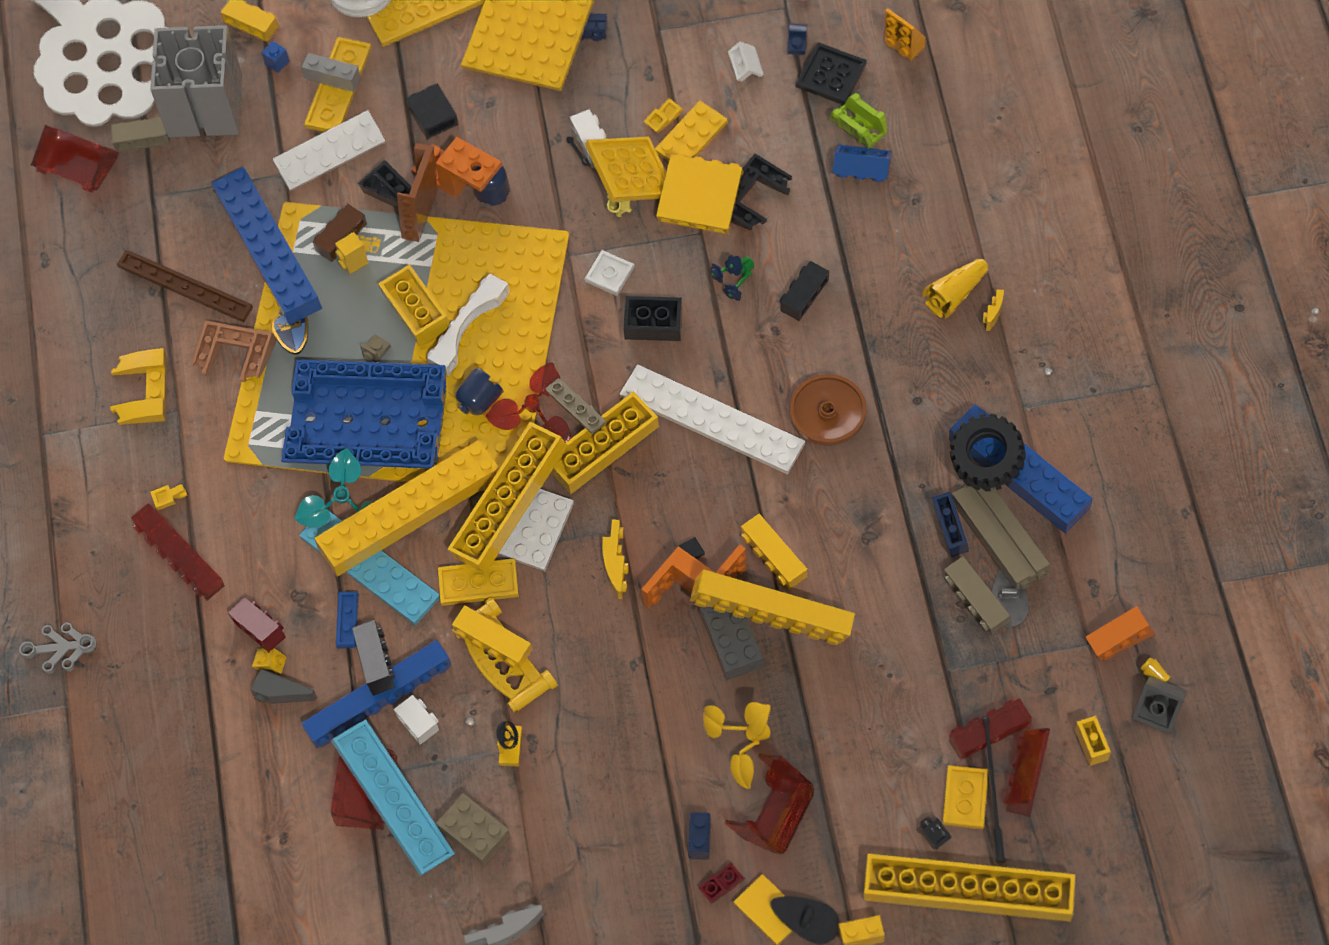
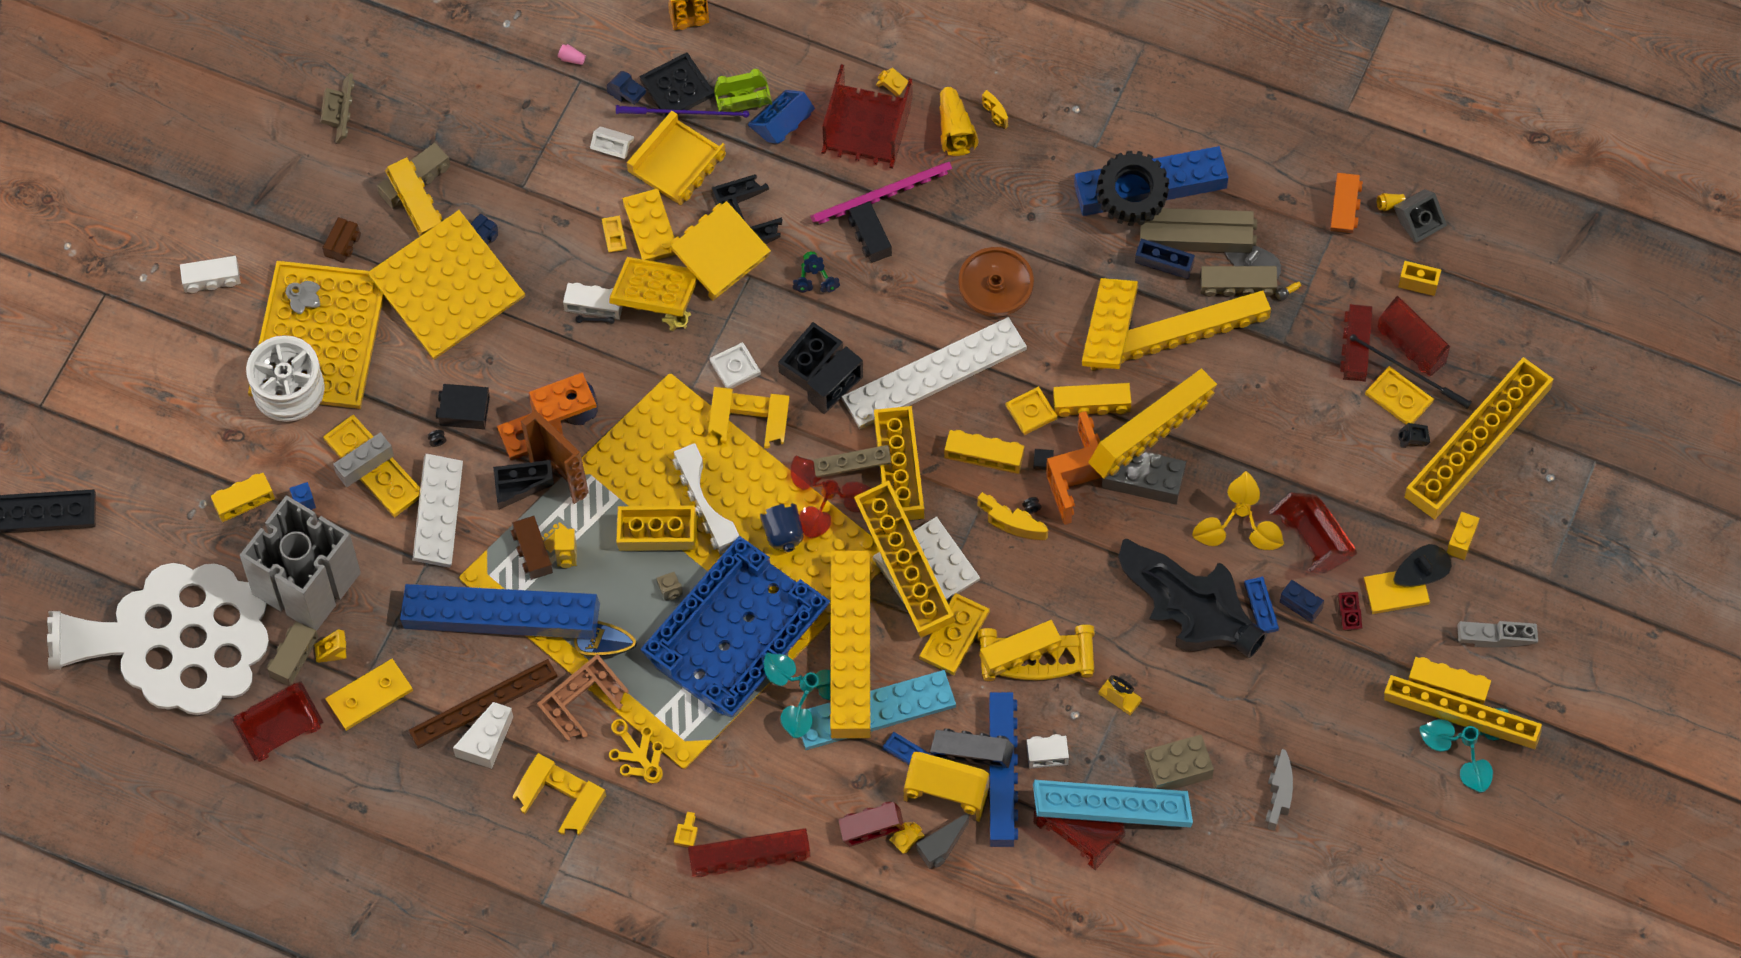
camera: 60 degrees left, 0 degrees up
(142, 206) = (369, 694): none -> yellow plate
(156, 305) = (485, 736): none -> white wedge
(163, 157) = (331, 647): none -> yellow slope
(213, 419) = (638, 754): none -> yellow plant
(322, 659) = (947, 781): none -> yellow windscreen
(391, 111) = (437, 438): none -> black bush
(588, 323) = (727, 402): none -> yellow wedge
(635, 750) = (1201, 604): none -> black piece
(639, 567) = (1031, 505): none -> black bush
(643, 347) = (834, 379): none -> black brick
(663, 500) = (984, 451): none -> yellow brick
(676, 806) = (1261, 604): none -> blue tile
(729, 512) = (1031, 410): none -> yellow plate
(764, 113) = (675, 159): none -> yellow panel
(775, 47) = (643, 110): none -> dark purple piece
(852, 519) = (1110, 323): none -> yellow plate
(854, 279) = (888, 190): none -> dark pink plate
(892, 578) = (1195, 325): none -> yellow brick
(903, 219) = (865, 123): none -> clear red windscreen
(960, 220) = (892, 81): none -> yellow bracket
(994, 639) = (1283, 293): none -> piece

